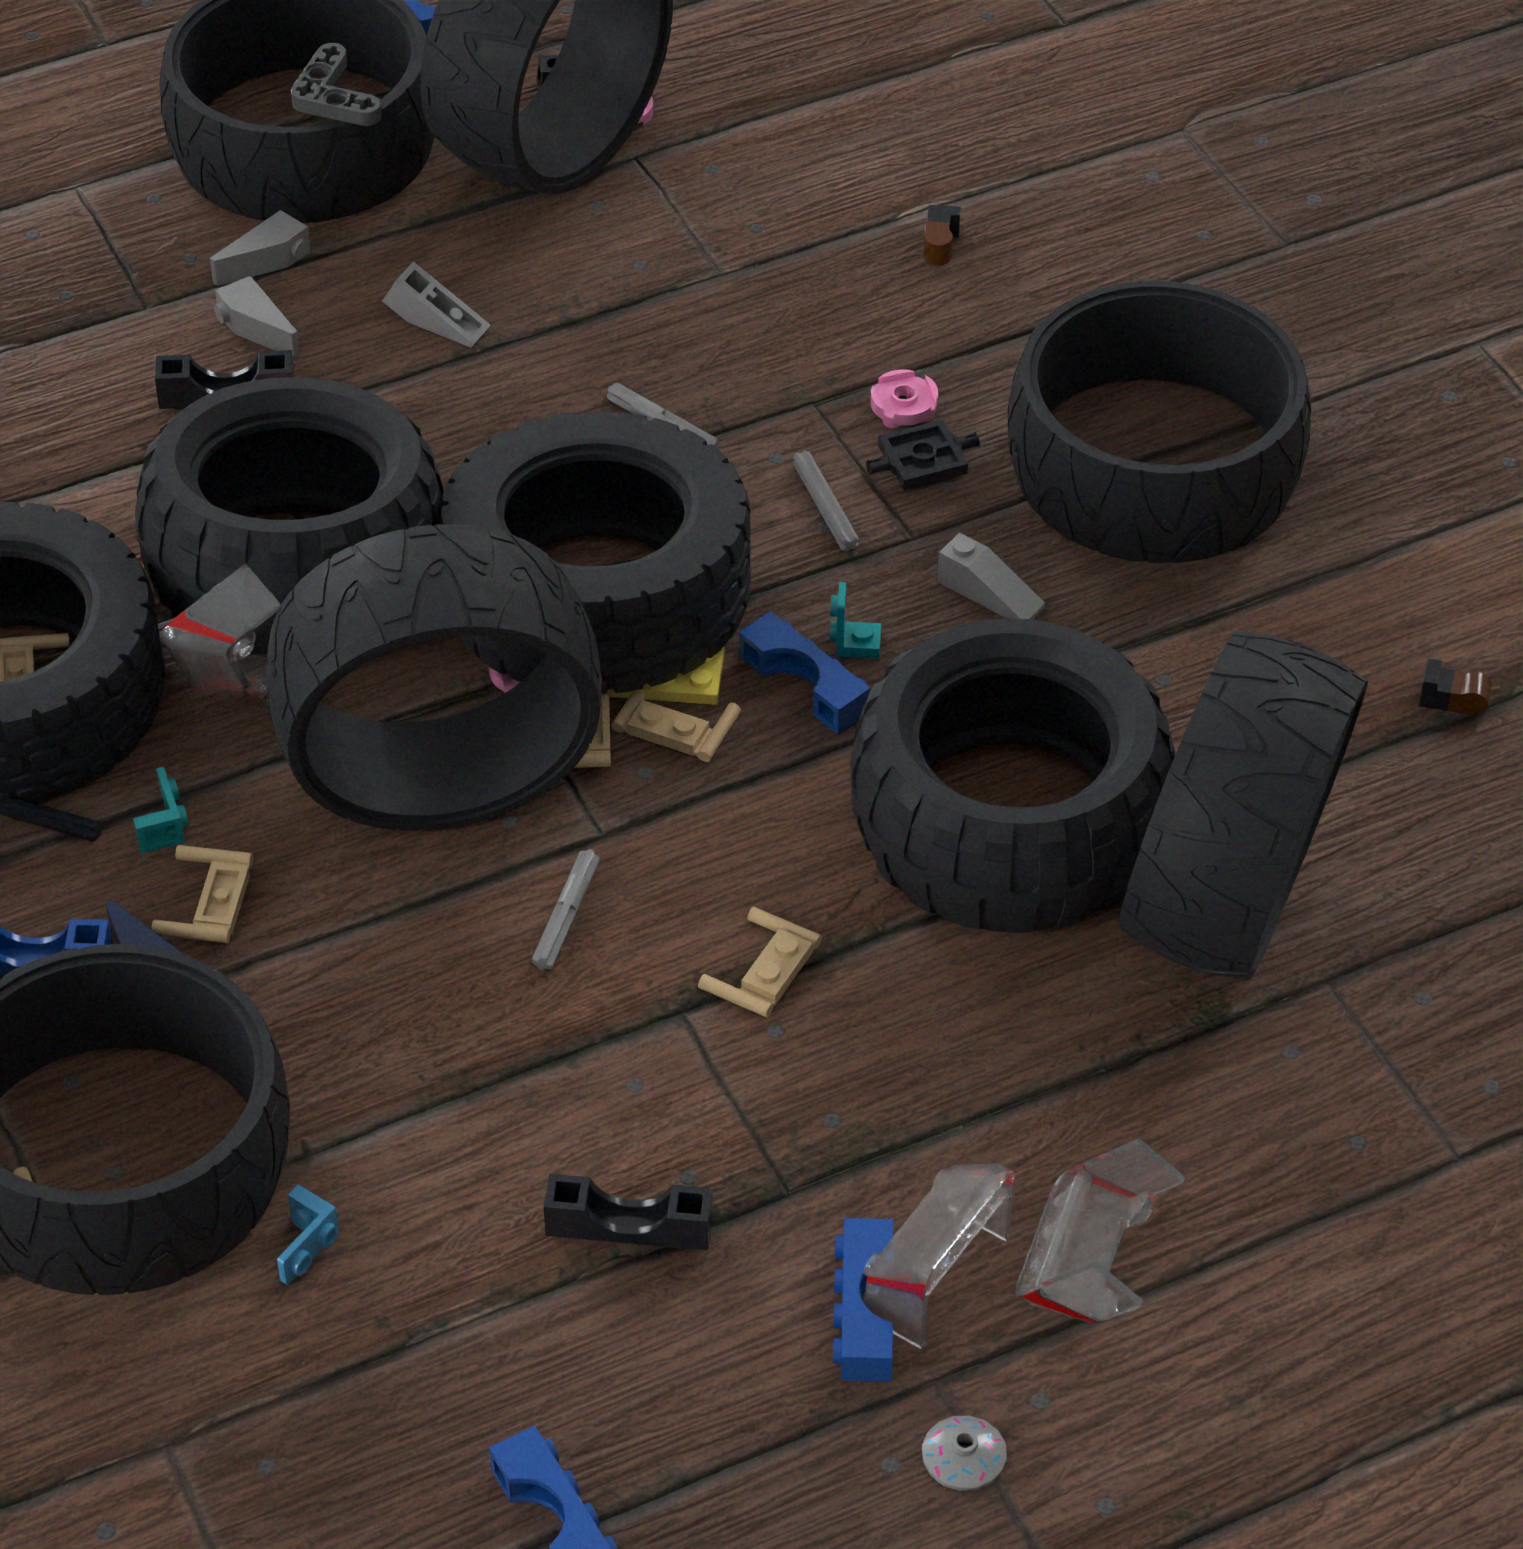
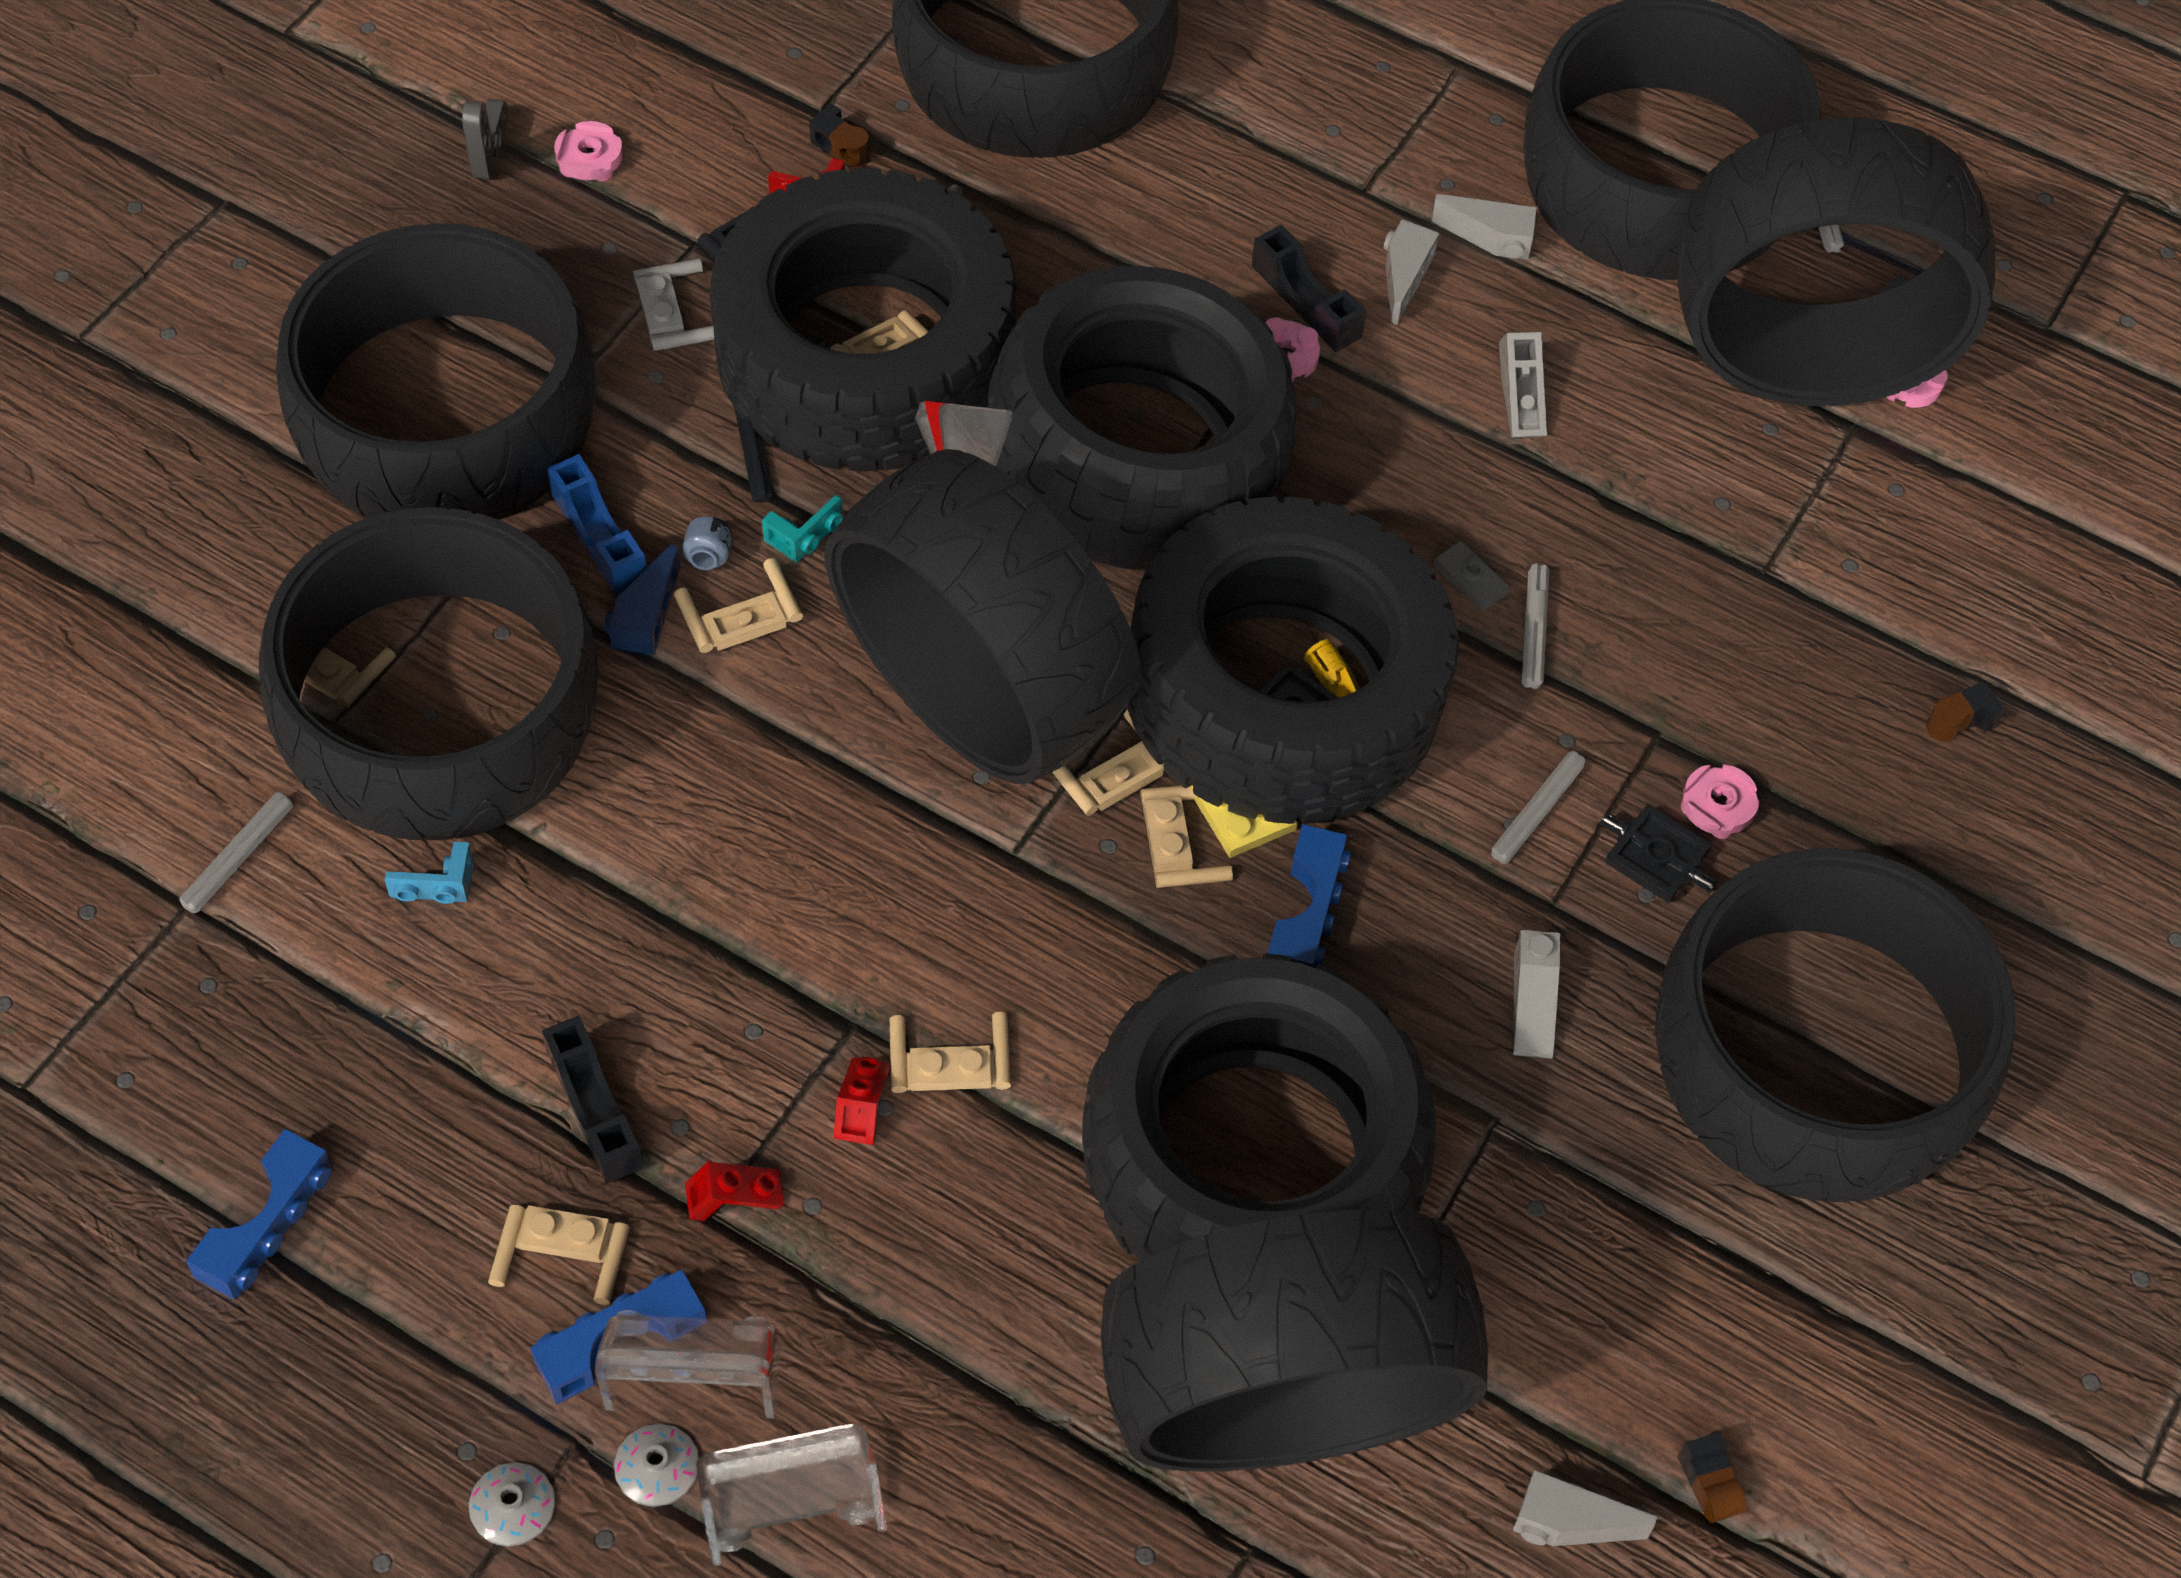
camera: 55 degrees right, 10 degrees up
(120, 881) = (707, 542): none -> sand blue head
(145, 1379) = (236, 852): none -> light grey axle
(356, 106) = (1633, 137): dark grey beam -> none
(565, 910) = (904, 872): light grey axle -> none
(615, 551) = (1331, 668): none -> yellow hinge
(737, 1301) = (564, 1236): none -> tan plate
(773, 1032) = (859, 1100): none -> red bracket
(780, 1162) = (734, 1185): none -> red bracket
(852, 638) = (1382, 915): teal bracket -> none
(997, 1347) = (656, 1483): none -> light grey dish
(1426, 783) = (1570, 1515): none -> light grey slope

